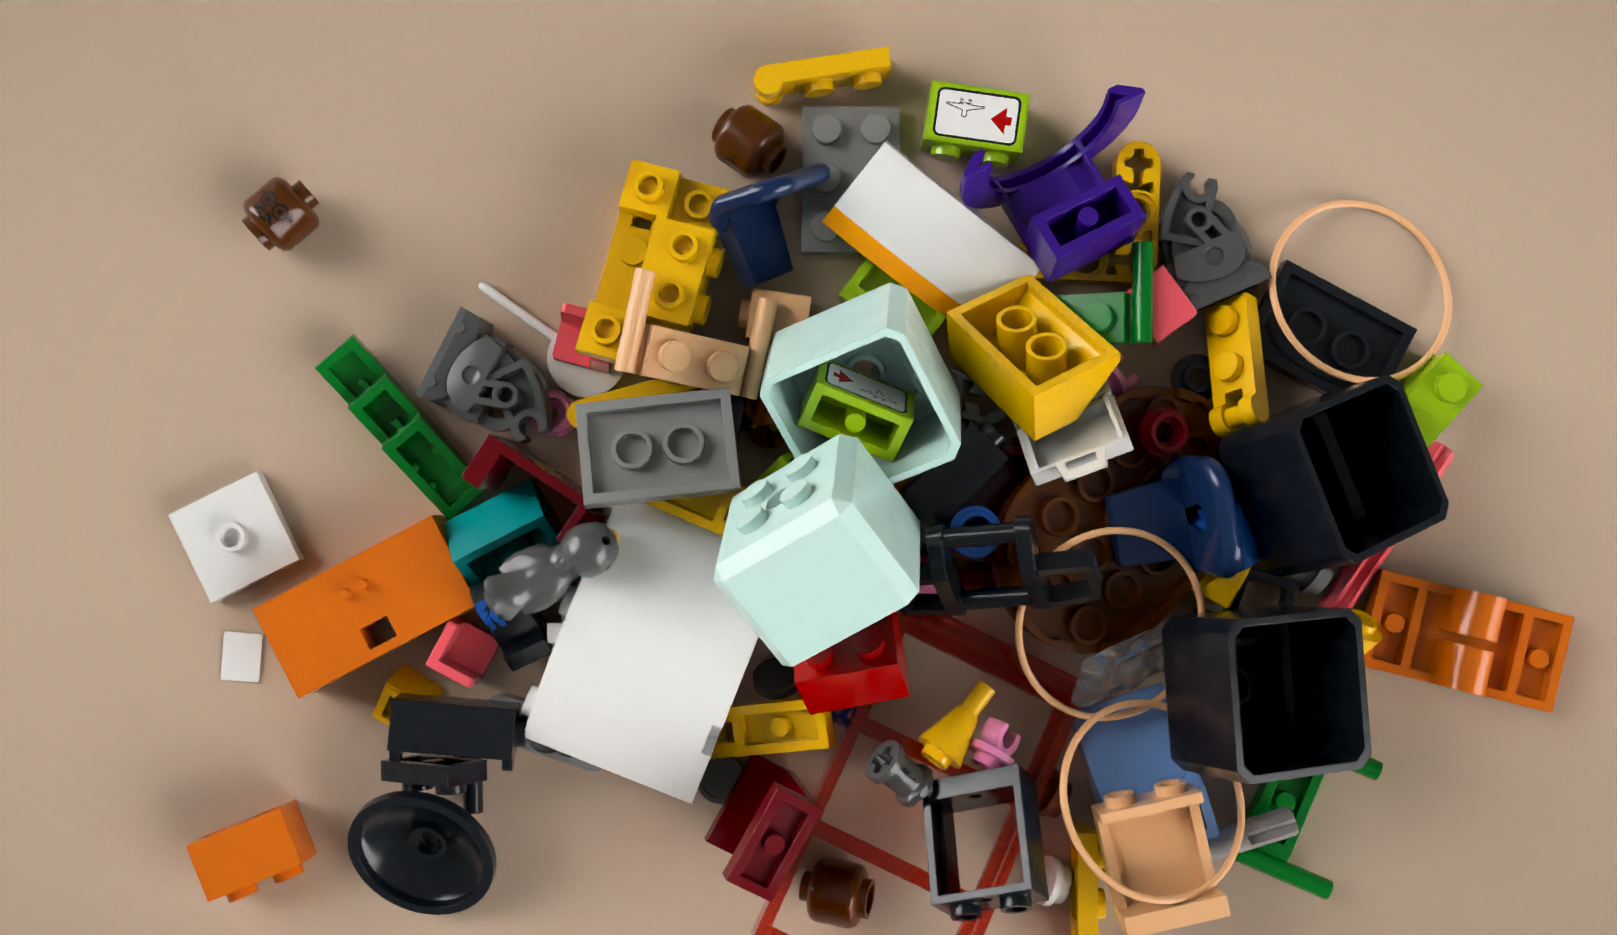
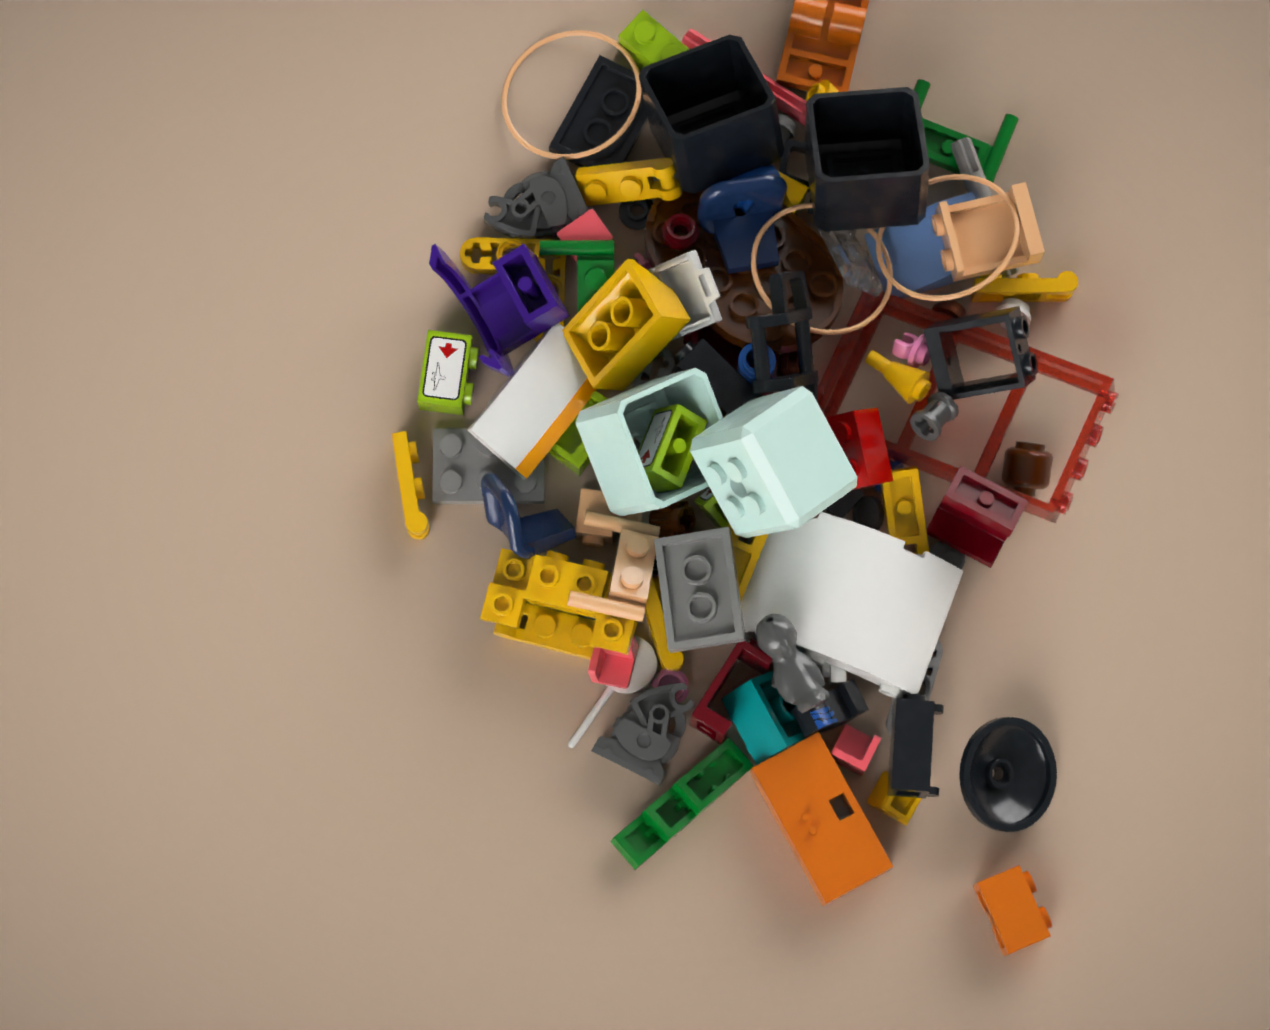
camera: 90 degrees left, 10 degrees down
(236, 536) = (770, 932): white plate -> none
(241, 656) = (863, 929): white sticker -> none
(281, 214) = (518, 896): reddish brown head -> none
(445, 773) = (946, 751): black plate -> none
(749, 141) = (460, 539): reddish brown head -> none

